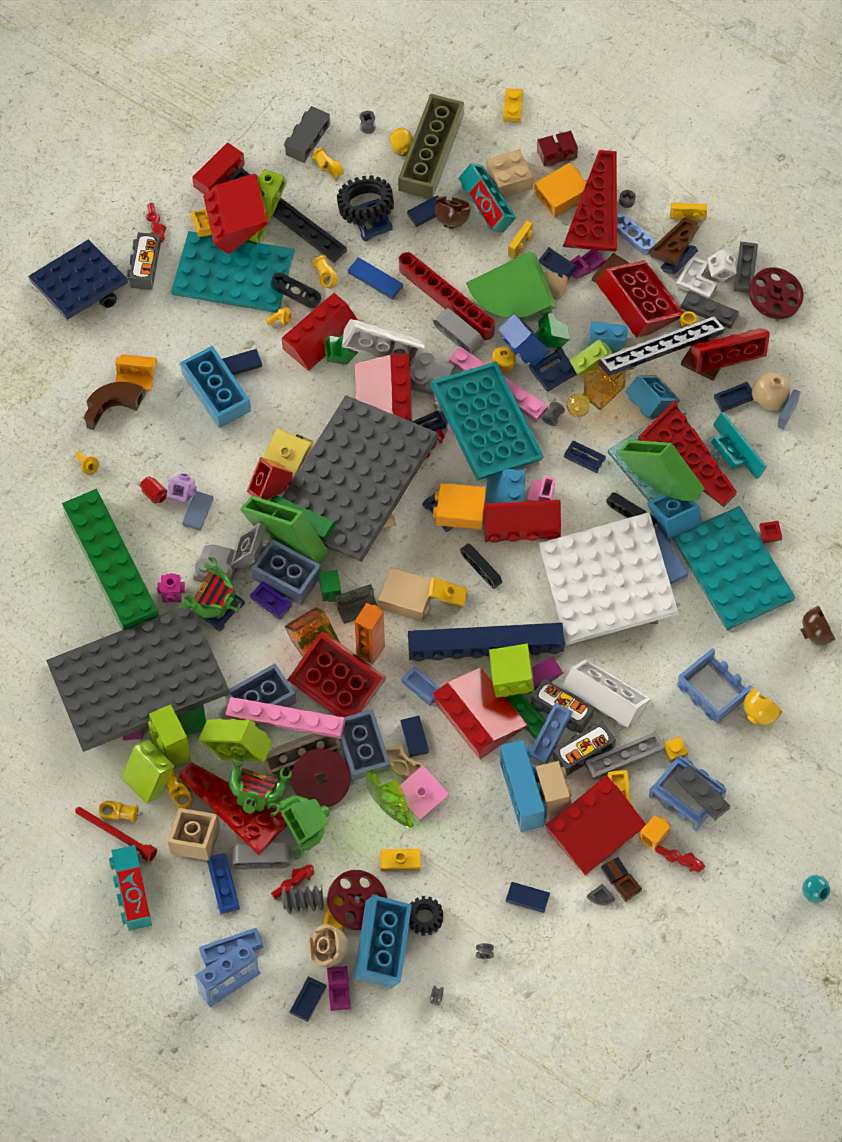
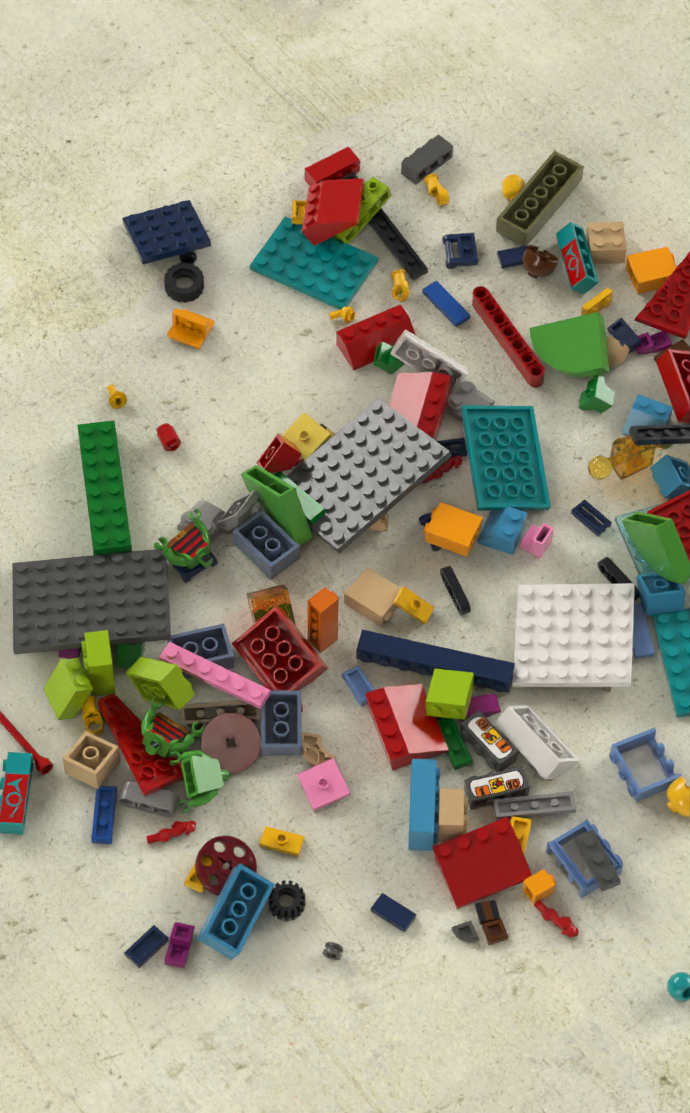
camera: 15 degrees right, 5 degrees down
(111, 395) = (159, 342): reddish brown arch -> none
(115, 339) = (184, 294): none -> black tyre
(120, 811) = (31, 719): yellow connector -> none
(144, 260) = (234, 232): brick -> none
(153, 217) = (257, 207): red animal -> none
(171, 588) = (152, 529): dark pink brick -> none
(182, 487) = (195, 441): lavender brick -> none
(198, 510) = (203, 467): sand blue tile -> none
(215, 386) = (259, 360): dark azure brick -> none
(217, 949) = (90, 876): medium blue tile -> none
(227, 974) = (76, 898): medium blue window -> none
(243, 362) = (293, 346): dark blue tile -> none
(270, 600) = (243, 567): dark purple plate -> none
(294, 283) = (352, 288): black beam -> none
(303, 899) = (174, 851): dark grey piece -> none
(327, 946) = (181, 900): tan cylinder -> none
(329, 585) = (303, 569): green brick -> none
(352, 602) = (314, 585): clear smoke panel -> none
(360, 187) = (460, 218): black tyre -> none
(367, 122) = (487, 163): dark grey bush -> none
(389, 798) = (290, 780): clear neon green slope -> none
(414, 736) = (336, 730): dark blue tile -> none
(436, 995) = (271, 979): dark grey bush -> none
(458, 330) = (508, 371): light grey beam -> none
(505, 359) = (543, 407): yellow head -> none
(513, 105) = (632, 183): yellow plate -> none
(522, 521) = (508, 558): red slope -> none
(523, 340) = (566, 394): blue brick -> none
(527, 403) = (550, 451): bright pink plate -> none
(551, 733) = (468, 763): medium blue tile -> none
(553, 153) = (660, 236): dark red piece -> none
(557, 373) = (588, 435): dark blue plate -> none
(557, 412) = (573, 469): dark grey bush -> none
(589, 358) = (620, 427): lime brick -> none
(674, 748) = (586, 811): yellow plate -> none

